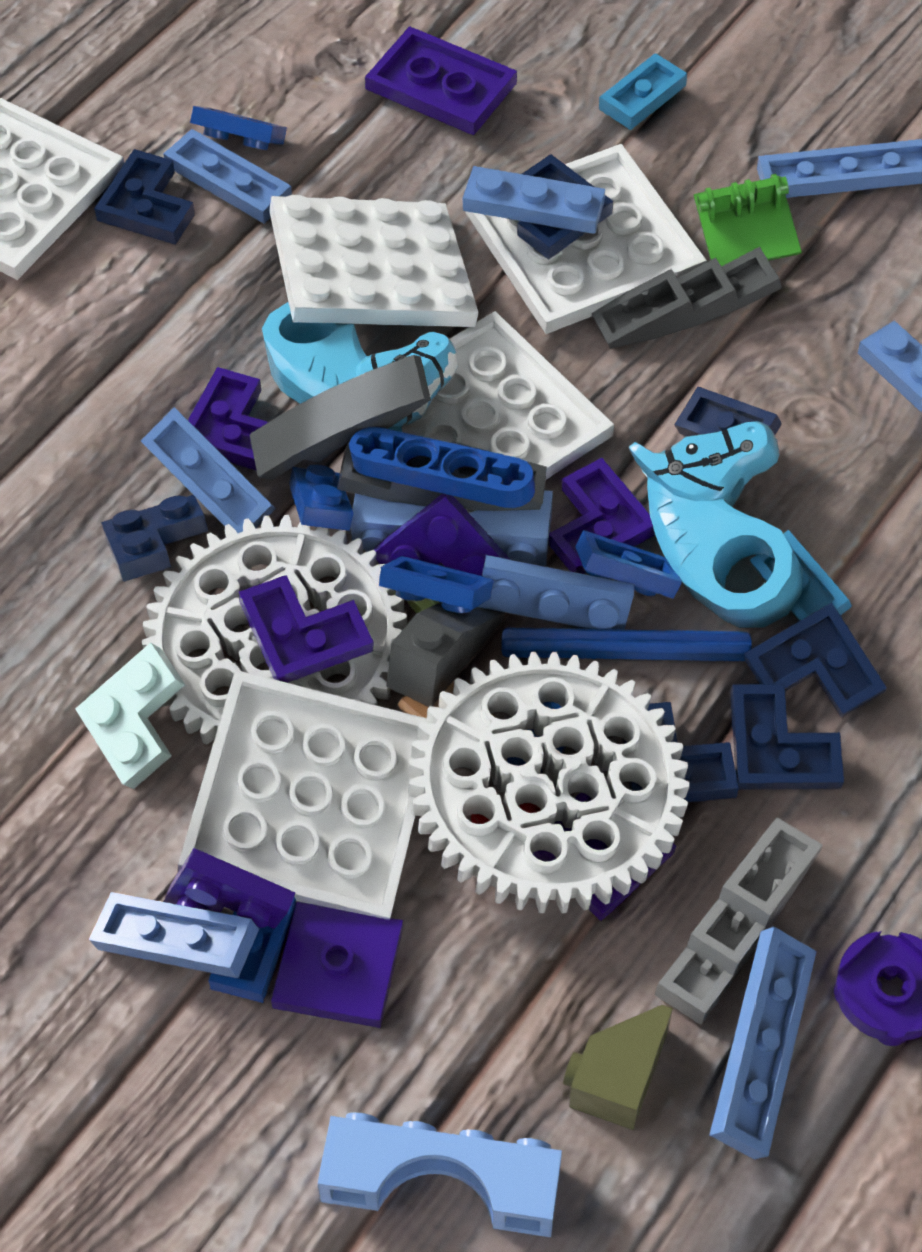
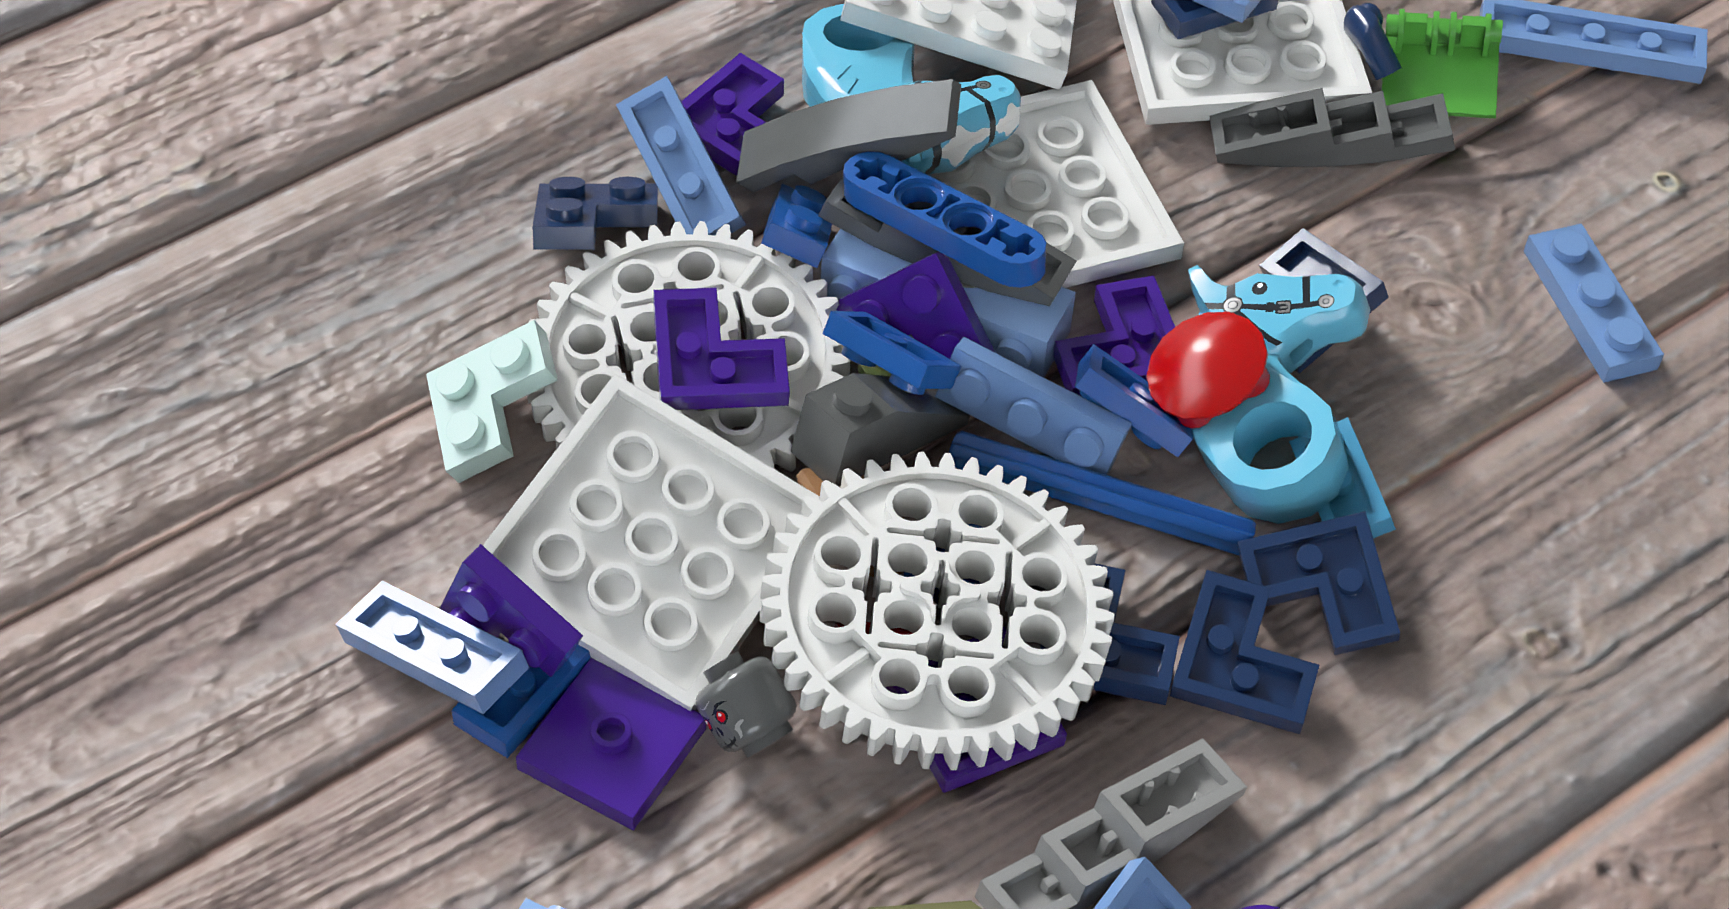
camera: 15 degrees right, 5 degrees down
(432, 902) = (745, 704): none -> dark grey head
(676, 523) = (1208, 367): none -> red dish
(685, 212) = (1365, 29): none -> dark blue arm

